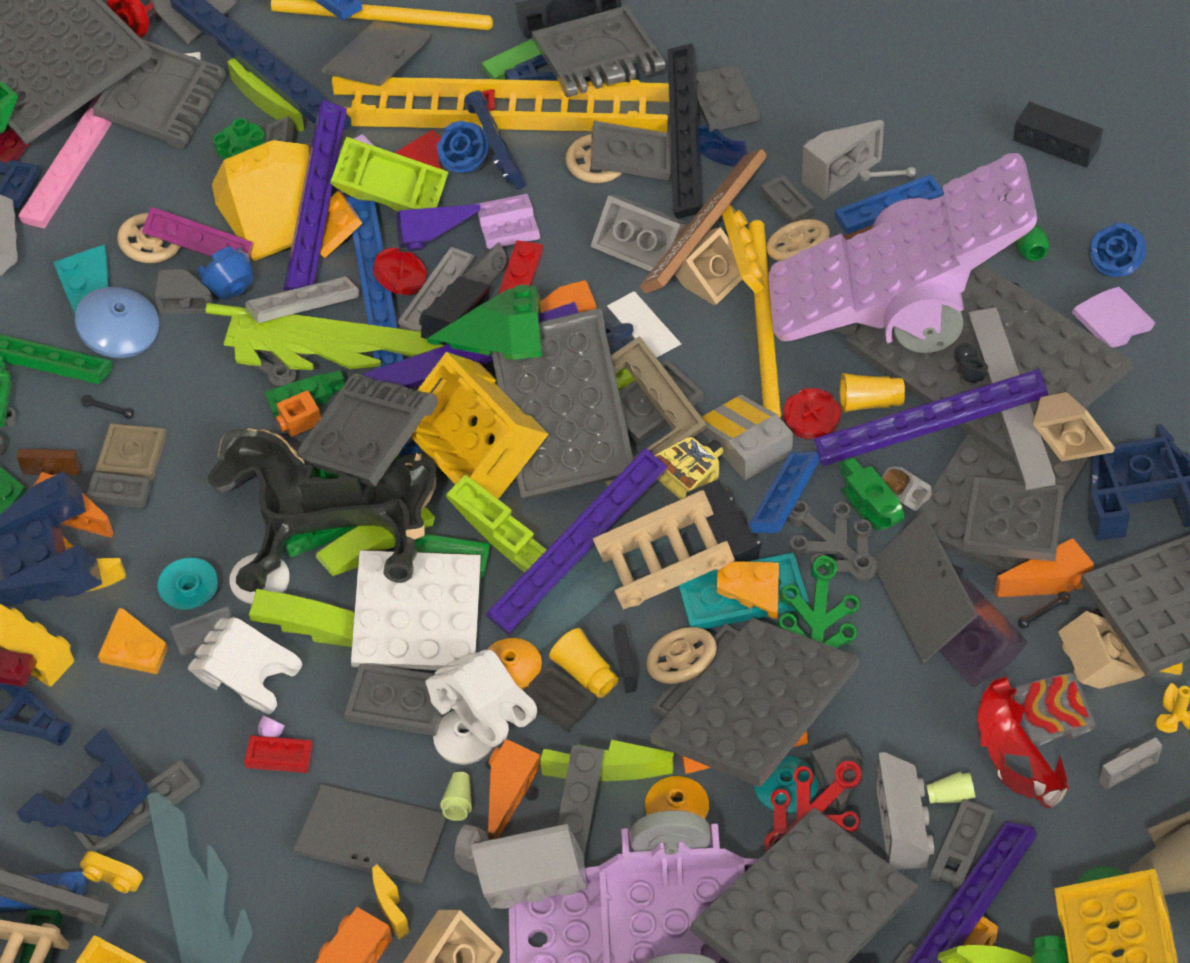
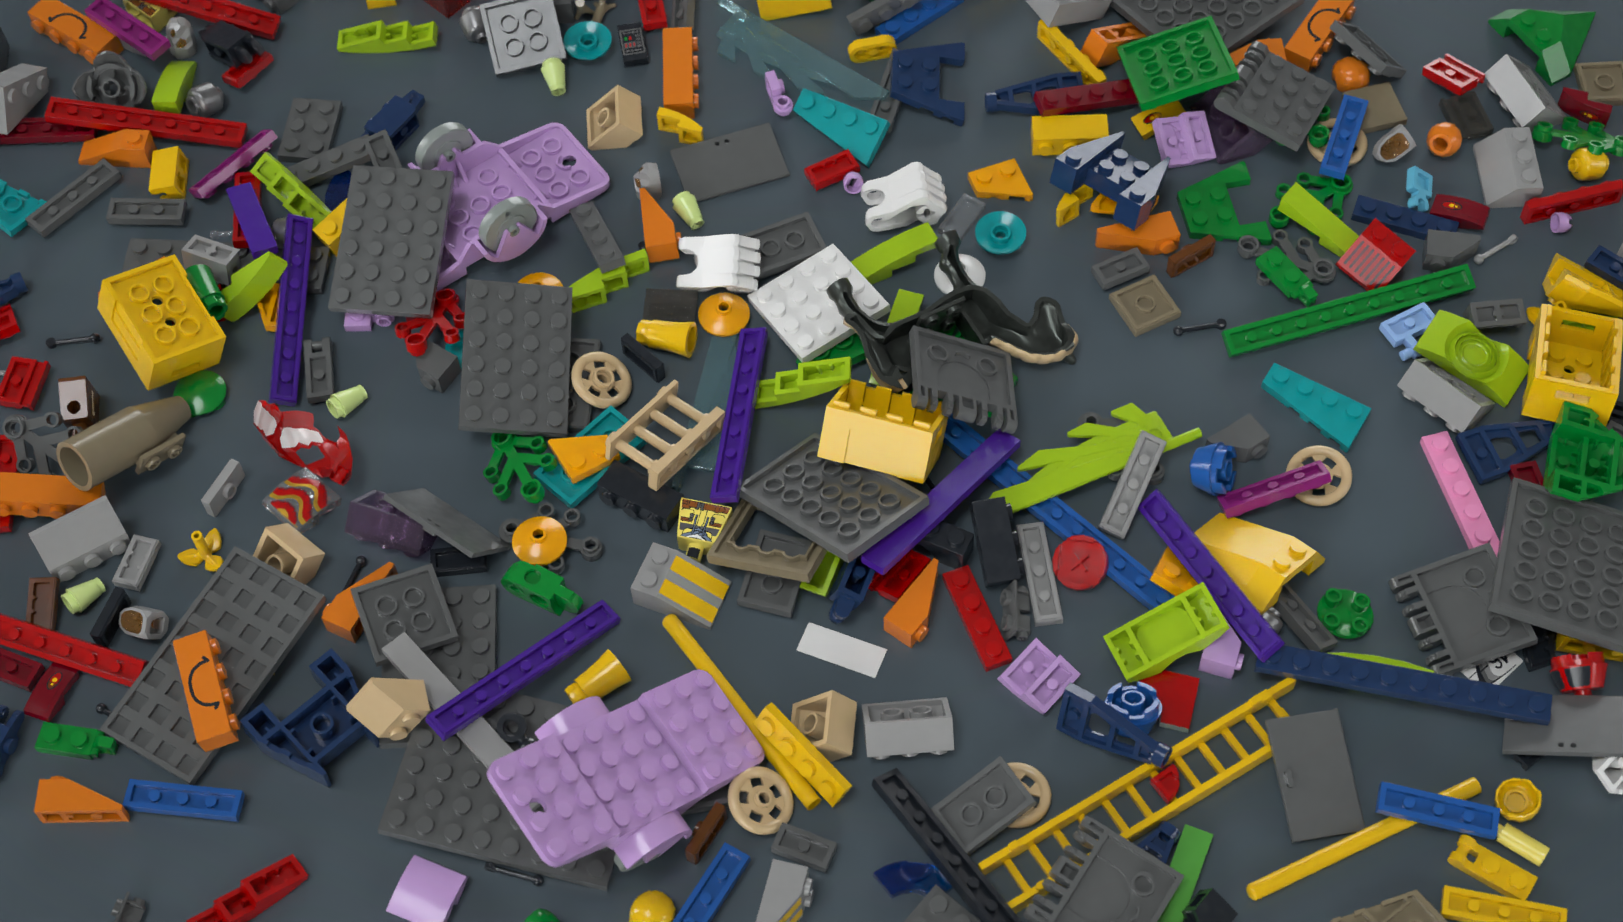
camera: 145 degrees right, 5 degrees up
(112, 331) = (1264, 400): medium blue dish -> none
(222, 792) = (843, 124): none -> teal wing
(254, 884) = (775, 88): none -> lavender plate
(297, 414) = (1042, 396): orange brick -> none
(319, 387) = (1061, 420): green hinge -> none
(425, 225) = (1092, 620): dark purple slope -> none
(500, 325) = (927, 512): green wedge -> none
(530, 866) = (594, 175): light grey slope -> none
(703, 221) = (853, 758): medium nougat tile -> none
(784, 492) = (607, 543): blue plate -> none
(812, 413) = (639, 644): red tile -> none
(844, 542) = (541, 550): none -> light orange dish
(902, 813) = (369, 355): light grey slope -> none
(907, 487) = (517, 612): light grey rock -> none

